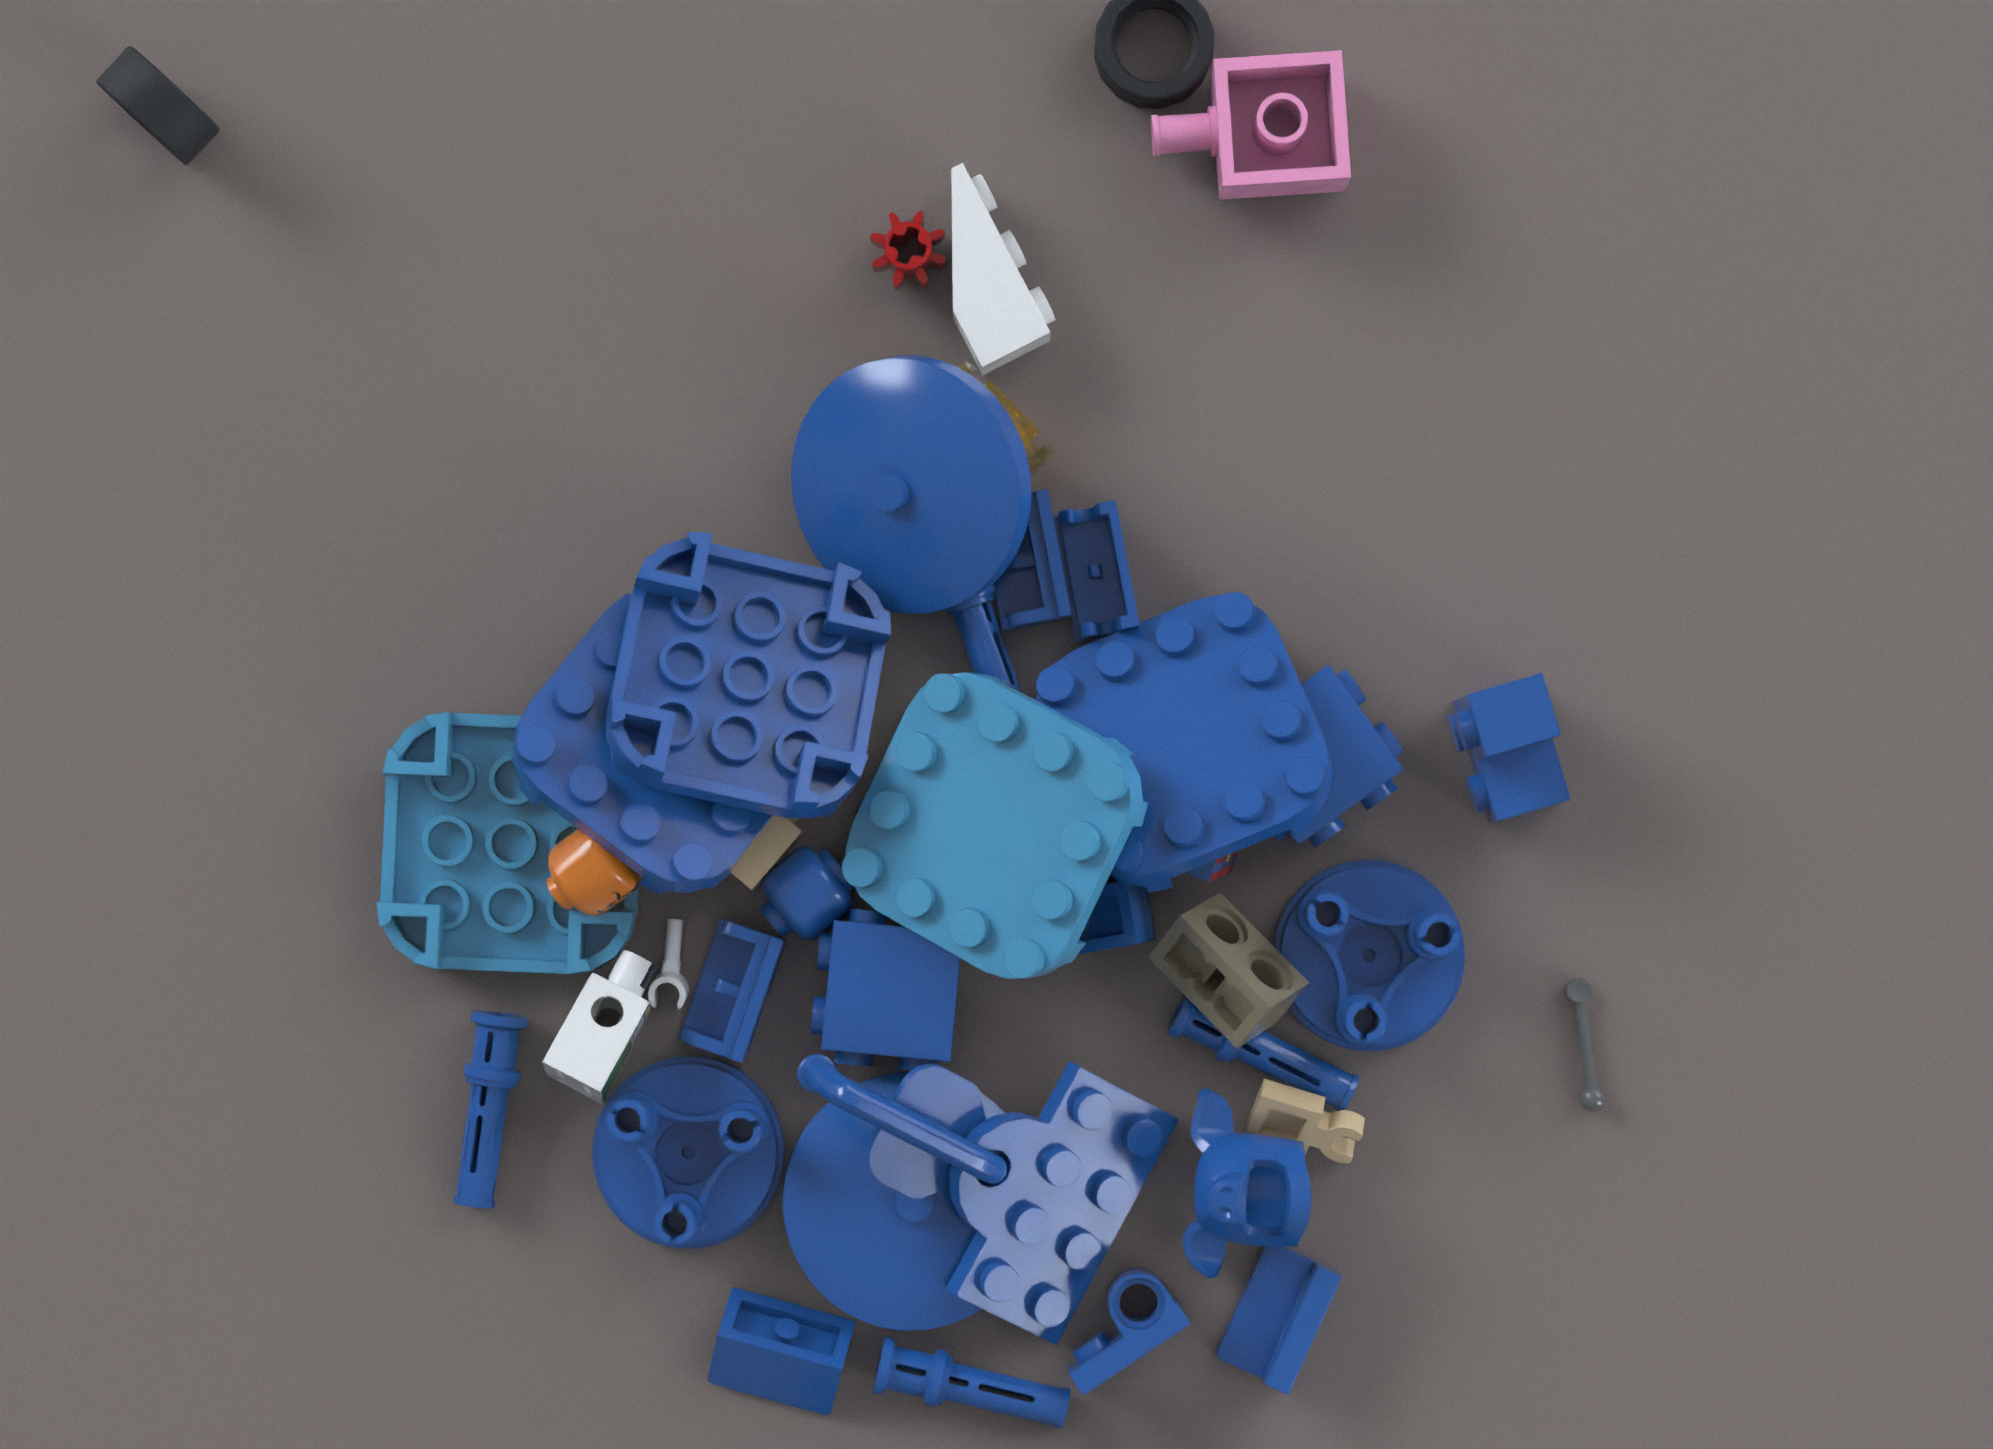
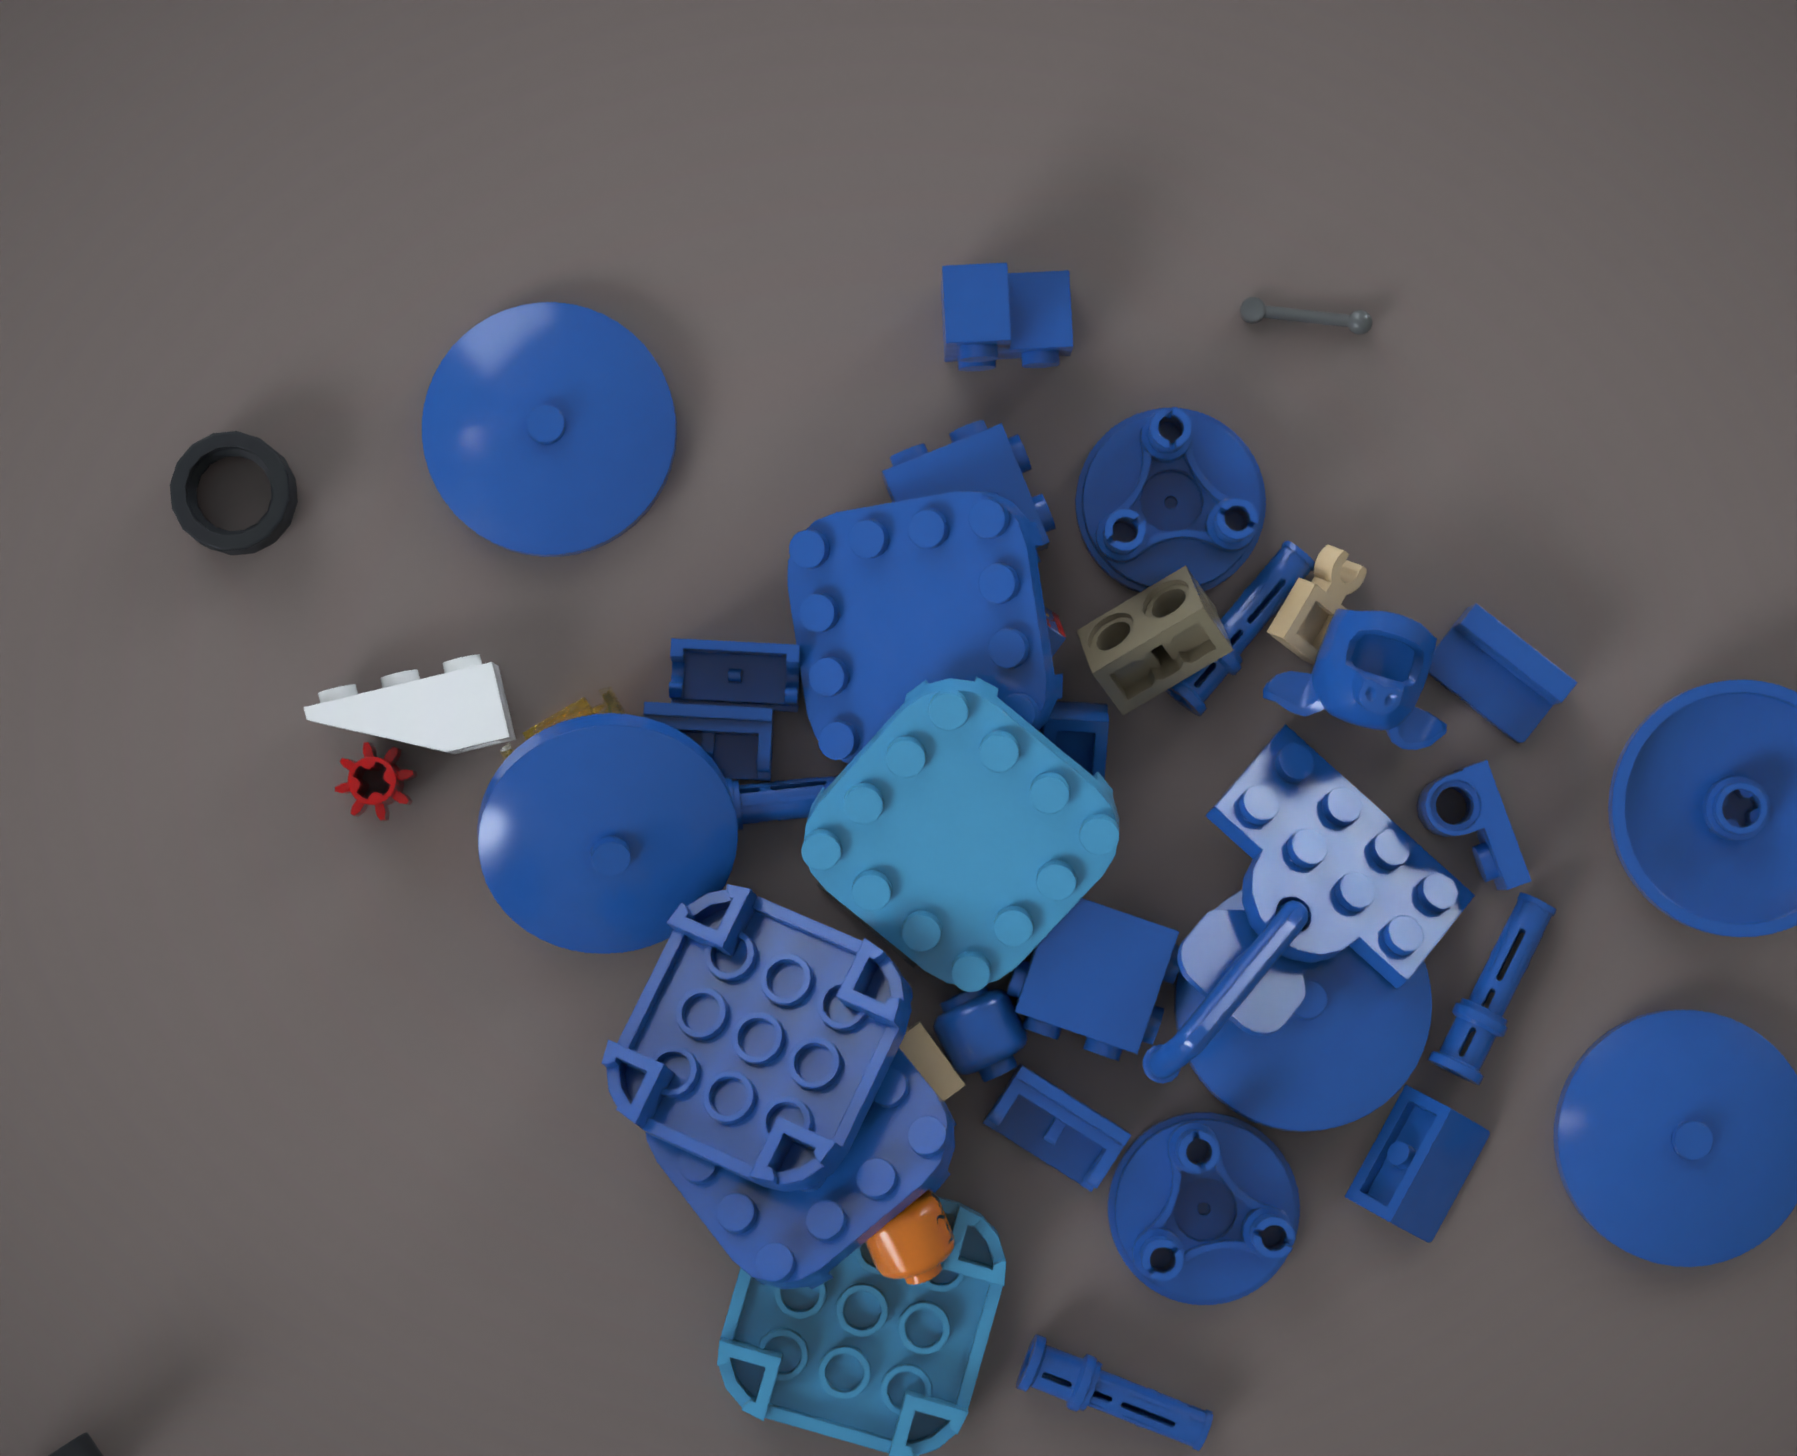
camera: 80 degrees left, 0 degrees up
(592, 1055) = (1088, 1281): white torso -> none
(671, 965) = (1018, 1182): white hand -> none
(1270, 126) = (343, 399): bright pink brick -> none
(1291, 333) = (549, 429): none -> blue dish

